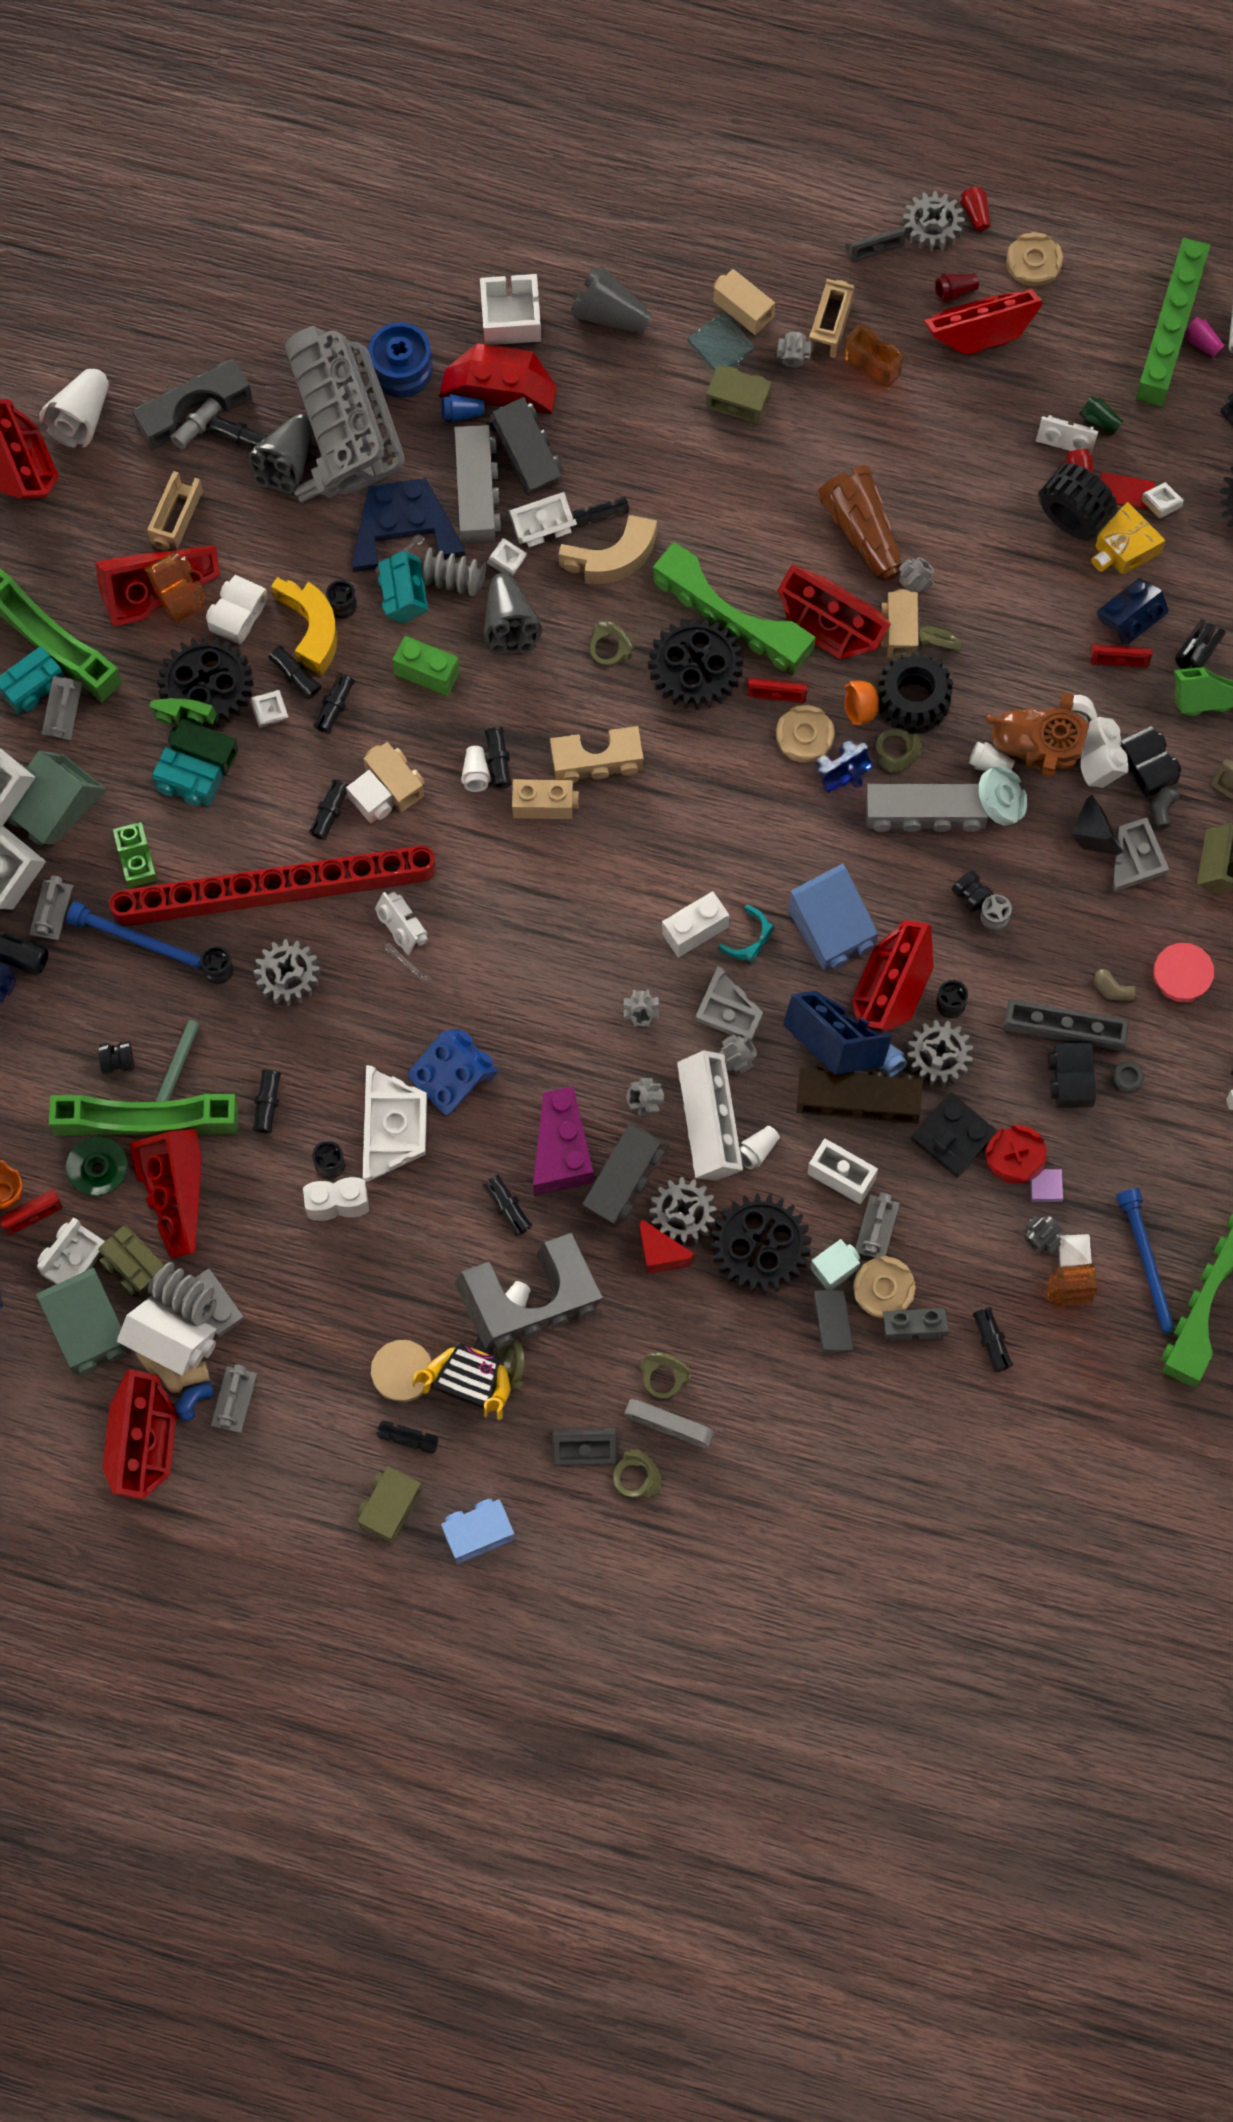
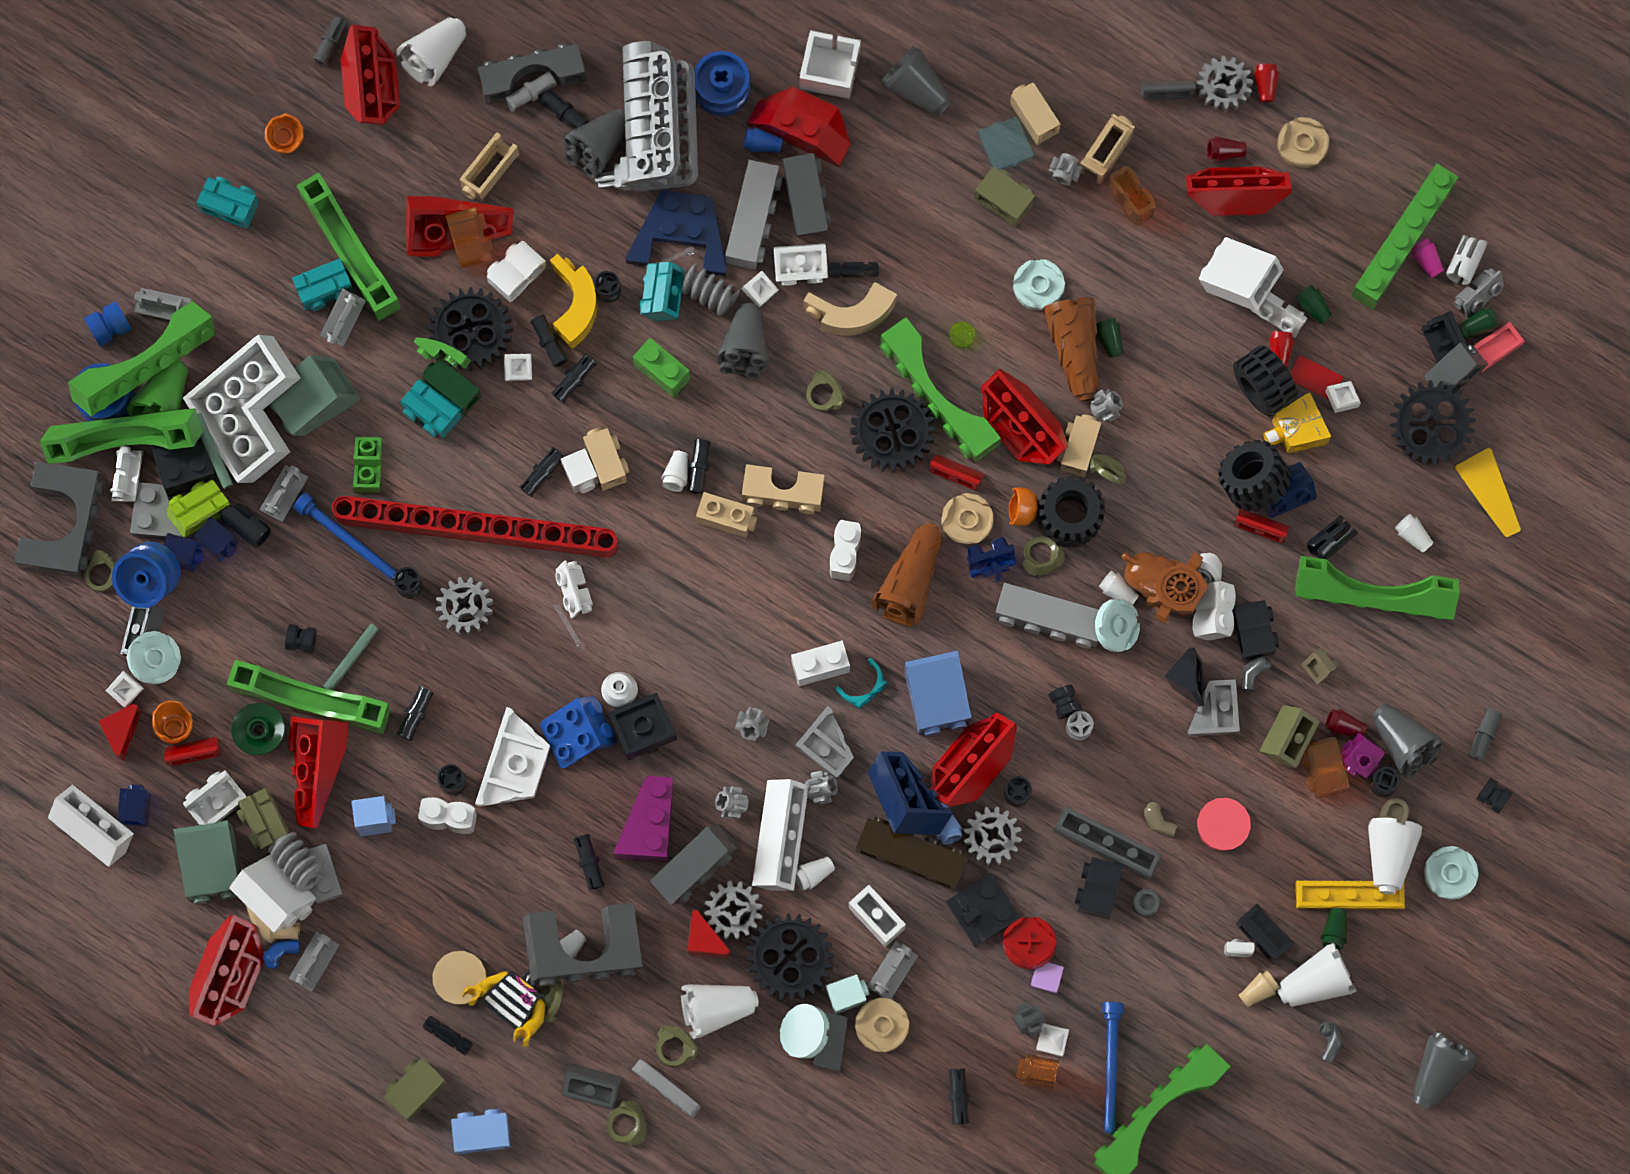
camera: 15 degrees right, 5 degrees up
(254, 1220) = (373, 816): none -> light blue brick
(484, 1021) = (619, 697): none -> white cone
(522, 1044) = (642, 726): none -> black hinge
(684, 799) = (846, 545): none -> white brick
(694, 1319) = (716, 1006): none -> white cone
(737, 547) = (962, 335): none -> clear neon green tile
(763, 815) = (909, 580): none -> dark orange cone
(802, 474) = (1038, 284): none -> light aqua tile
(802, 1317) = (804, 1031): none -> light aqua tile
(897, 506) = (1110, 337): none -> dark green cone
(921, 1322) = (897, 1063): dark grey hinge -> none
(1015, 403) = (1240, 274): none -> white brick
(1098, 601) = (1261, 489): none -> black tyre

